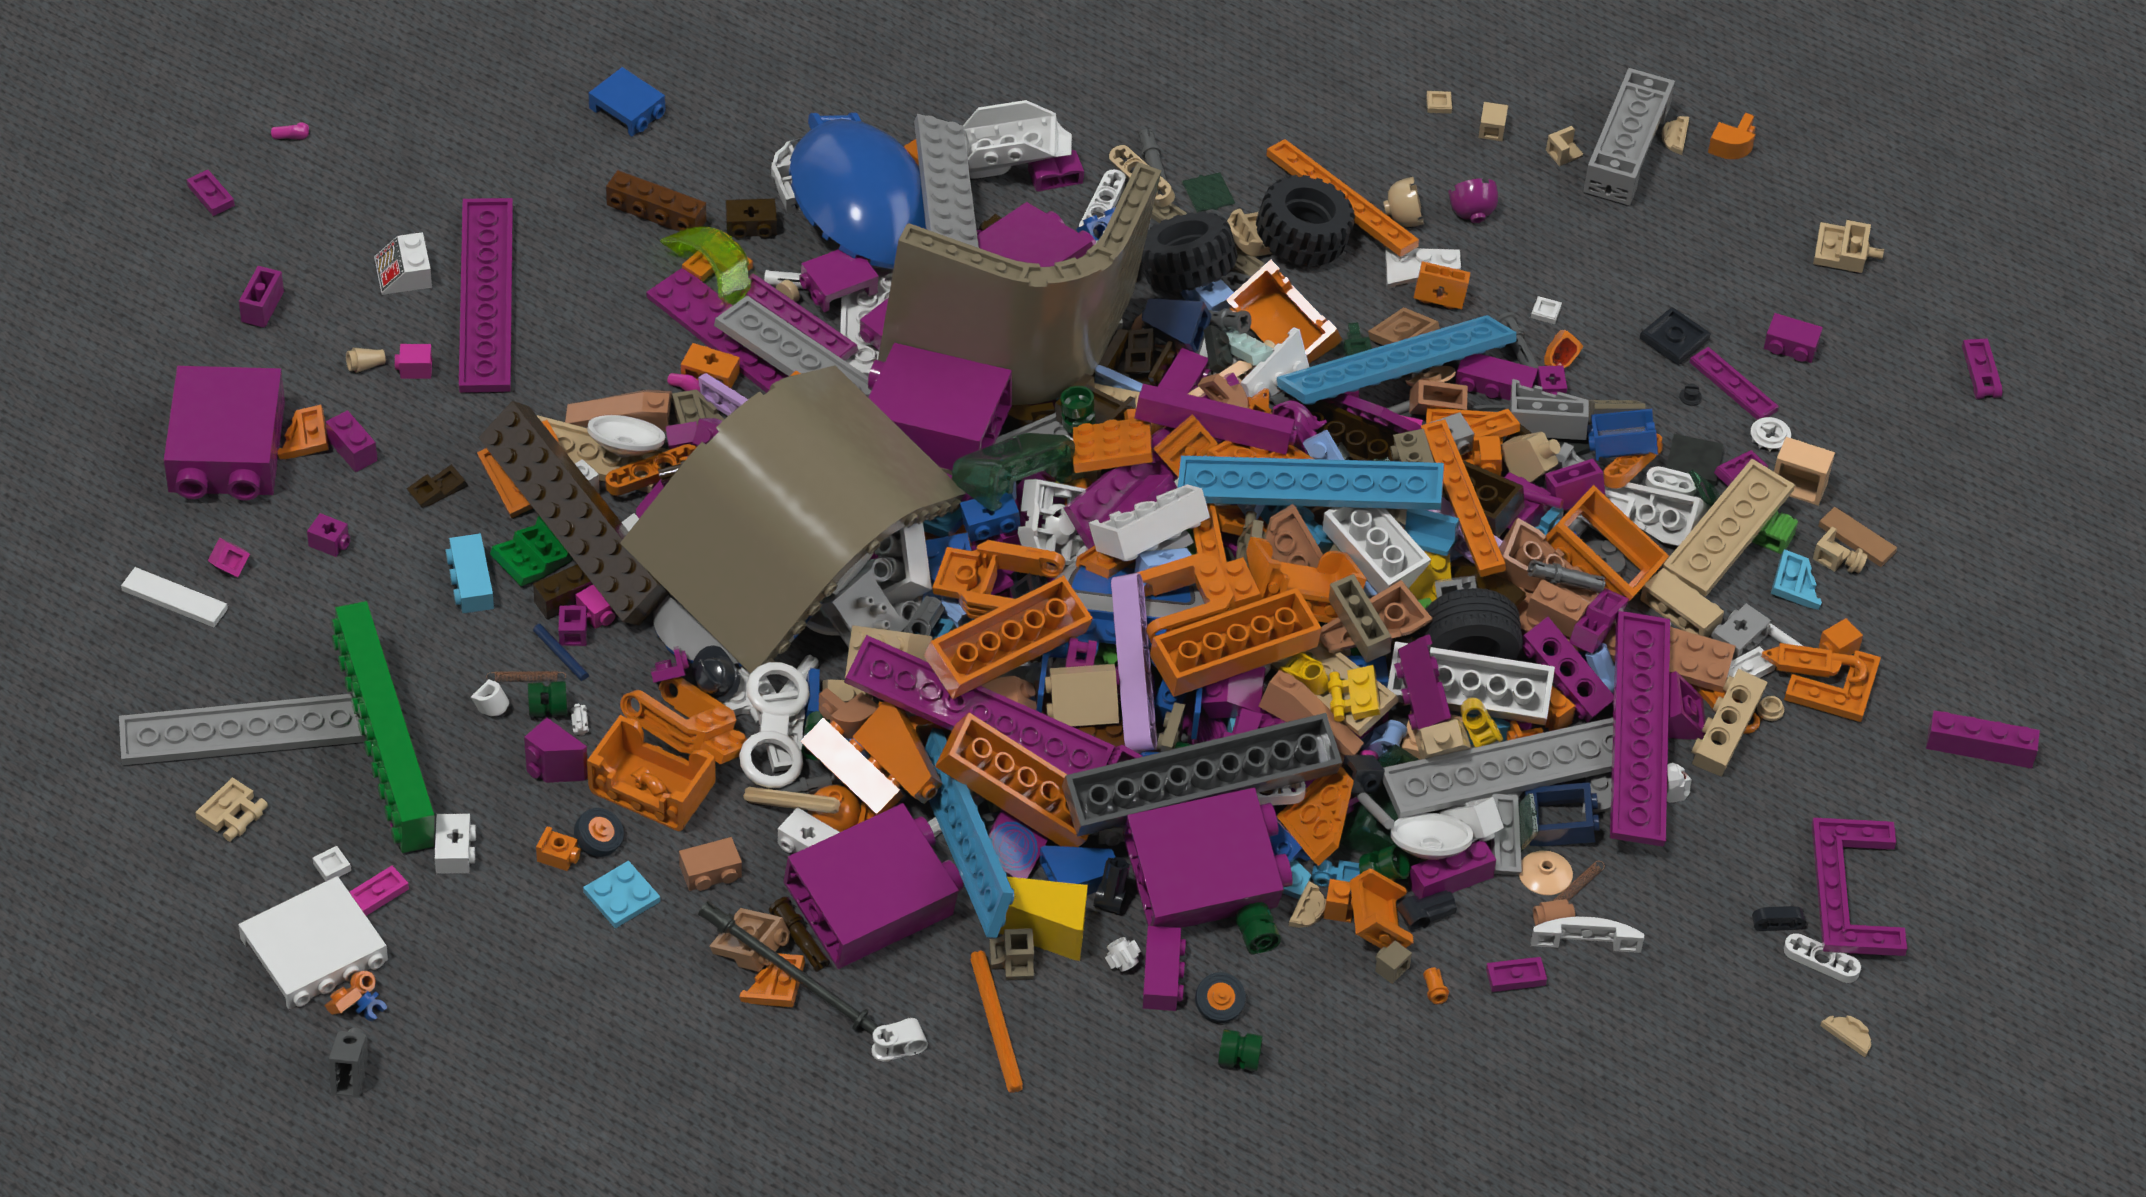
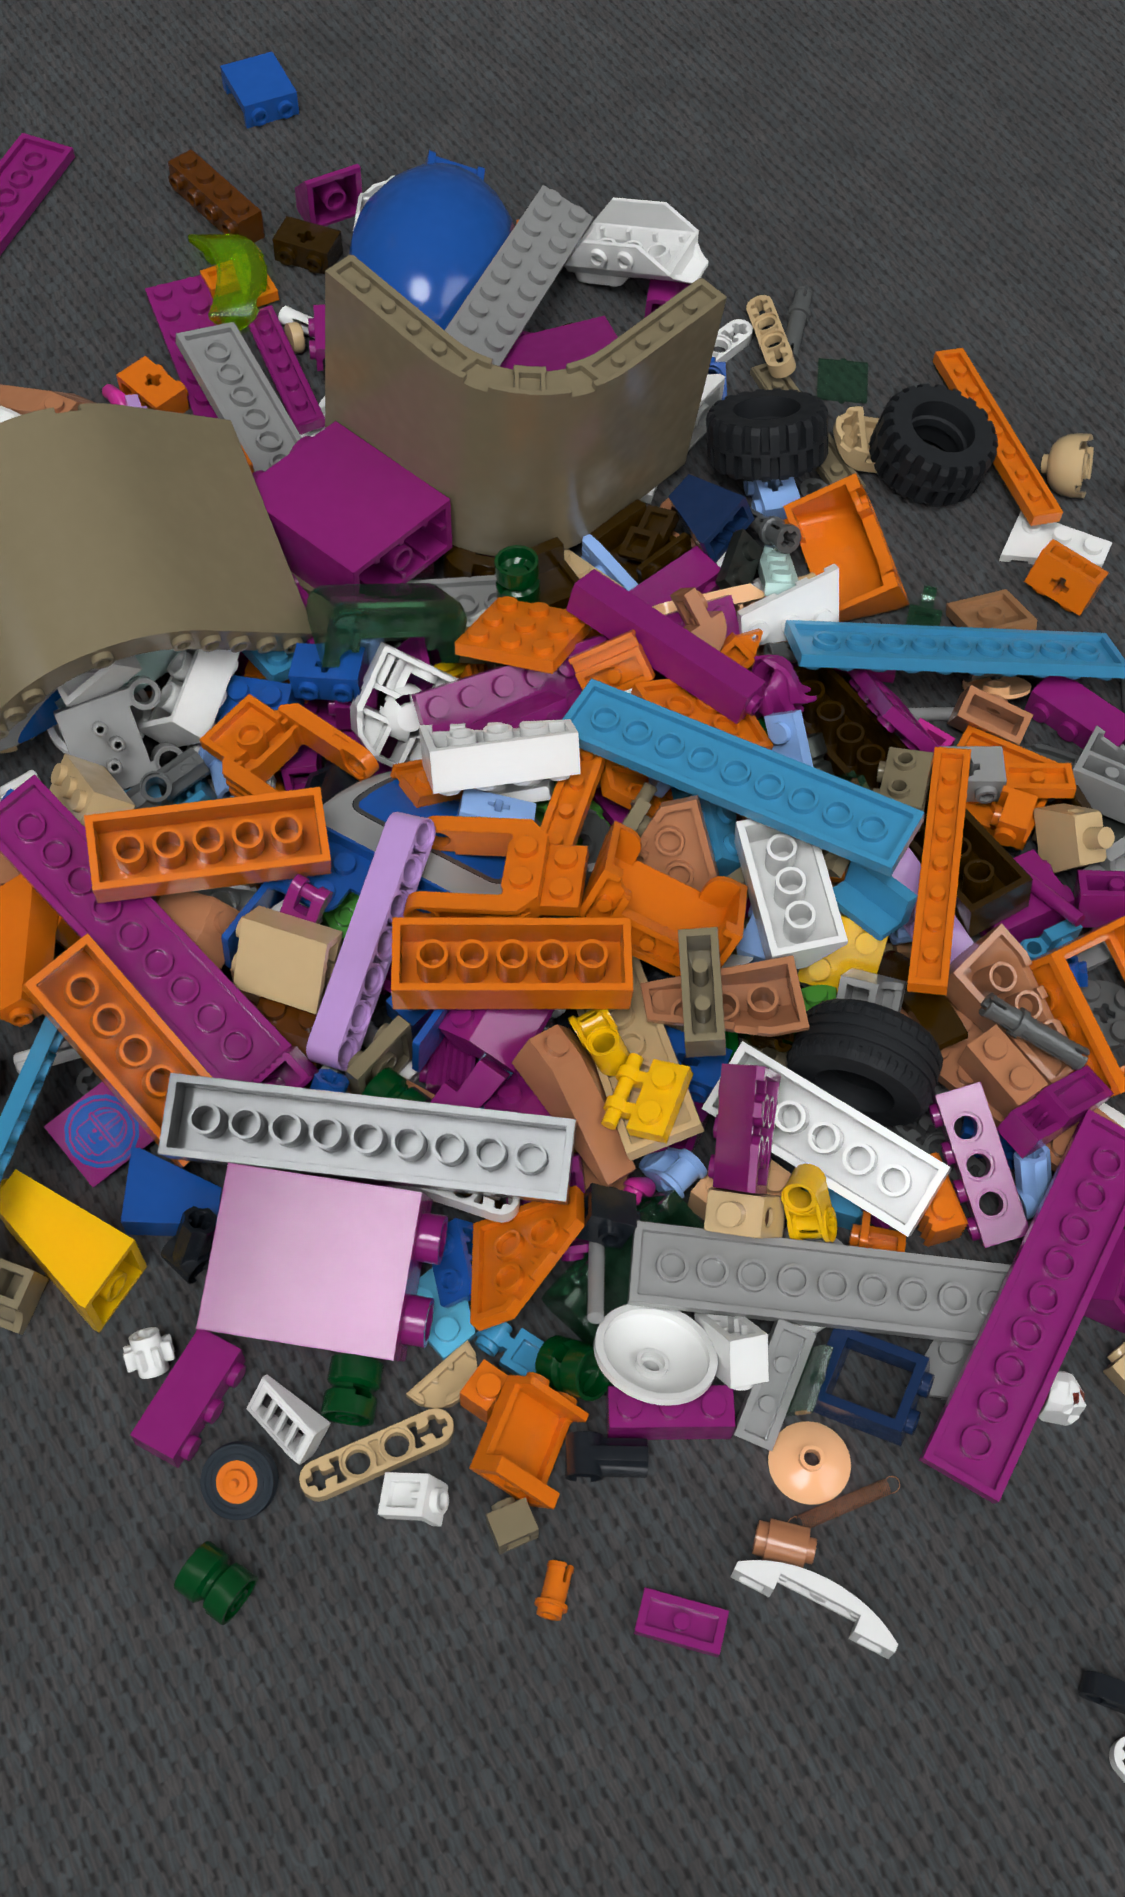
camera: 25 degrees right, 10 degrees up
(745, 172) = (330, 196): none -> magenta slope
(1237, 949) = (306, 1419): none -> white slope
(1291, 959) = (374, 1448): none -> tan beam
(1326, 970) = (413, 1498): none -> white bracket

